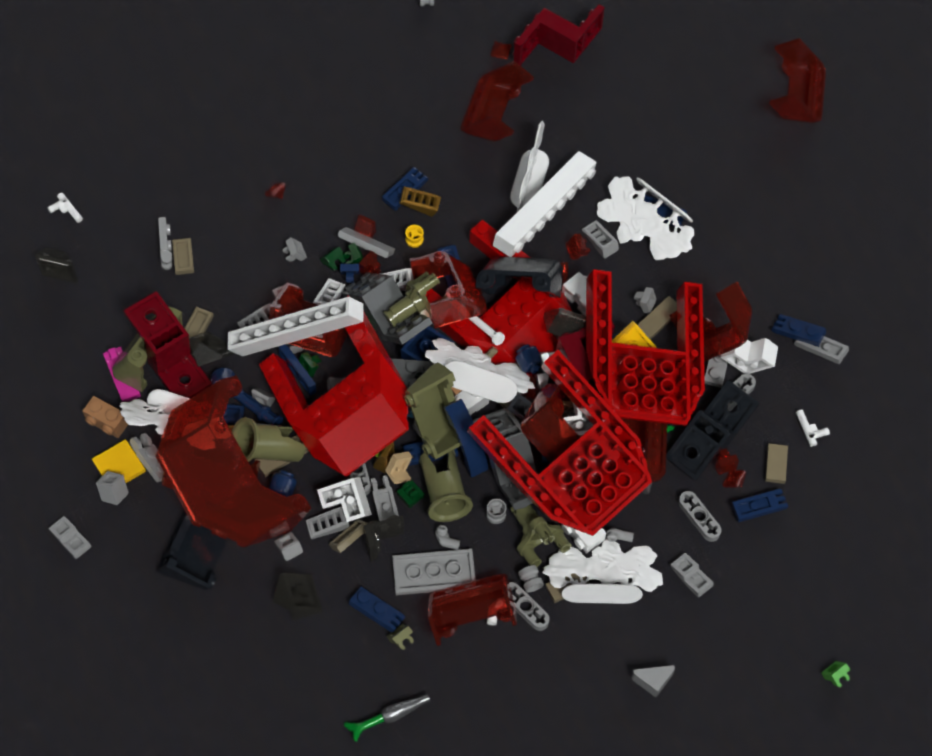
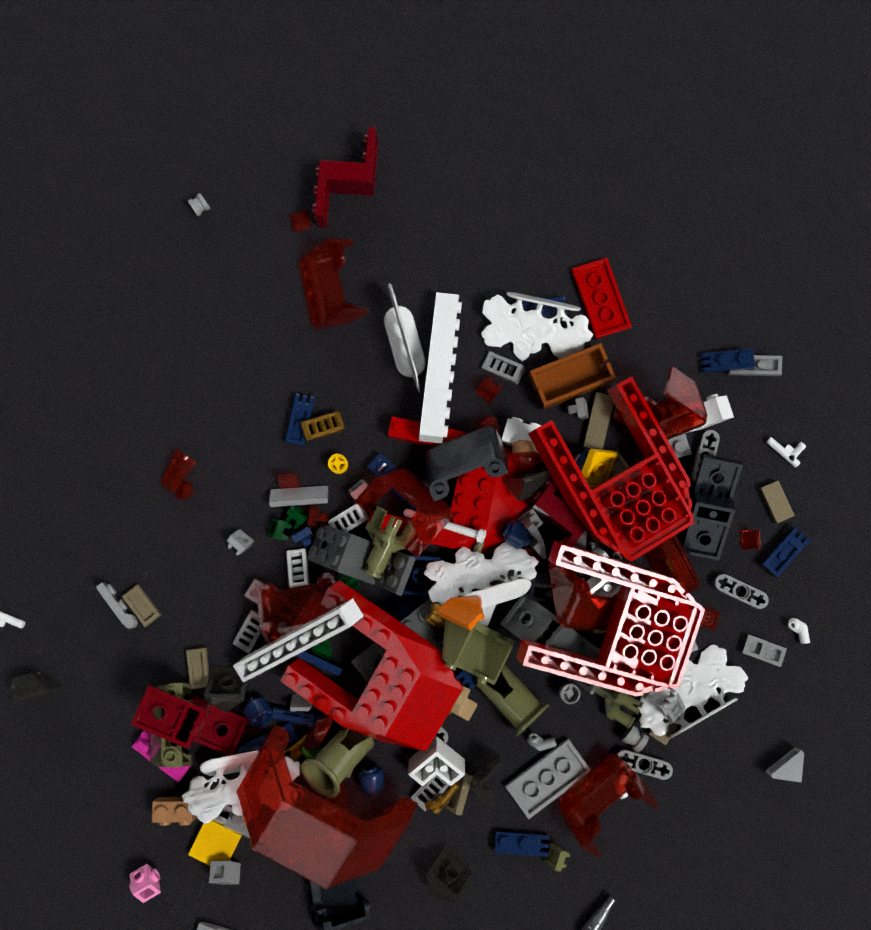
camera: 25 degrees left, 20 degrees up
(43, 456) = (145, 883): none -> bright pink brick
(269, 415) = (316, 735): none -> clear red slope
(281, 172) = (180, 467): none -> clear red slope
(289, 546) = (413, 831): light grey slope -> none
(331, 532) = (441, 801): none -> pearl gold hose
(384, 499) = (470, 742): light grey hinge -> none
(410, 493) = (485, 718): dark green tile -> none
(420, 367) = (434, 618): none -> pearl gold wheel
(445, 365) = (463, 611): none -> orange slope
(461, 421) = (500, 643): dark blue slope -> none
(575, 301) = (525, 455): none -> clear red piece
(579, 556) = (672, 705): none -> light grey hinge
(652, 268) = (571, 376): none -> dark orange piece
(656, 522) = (710, 618): none -> clear red tile
(718, 230) = (601, 298): none -> red tile
(726, 462) = (737, 529): clear red tile -> none
(735, 573) = (800, 628): none -> white arm
(805, 83) = (597, 101): clear red windscreen -> none

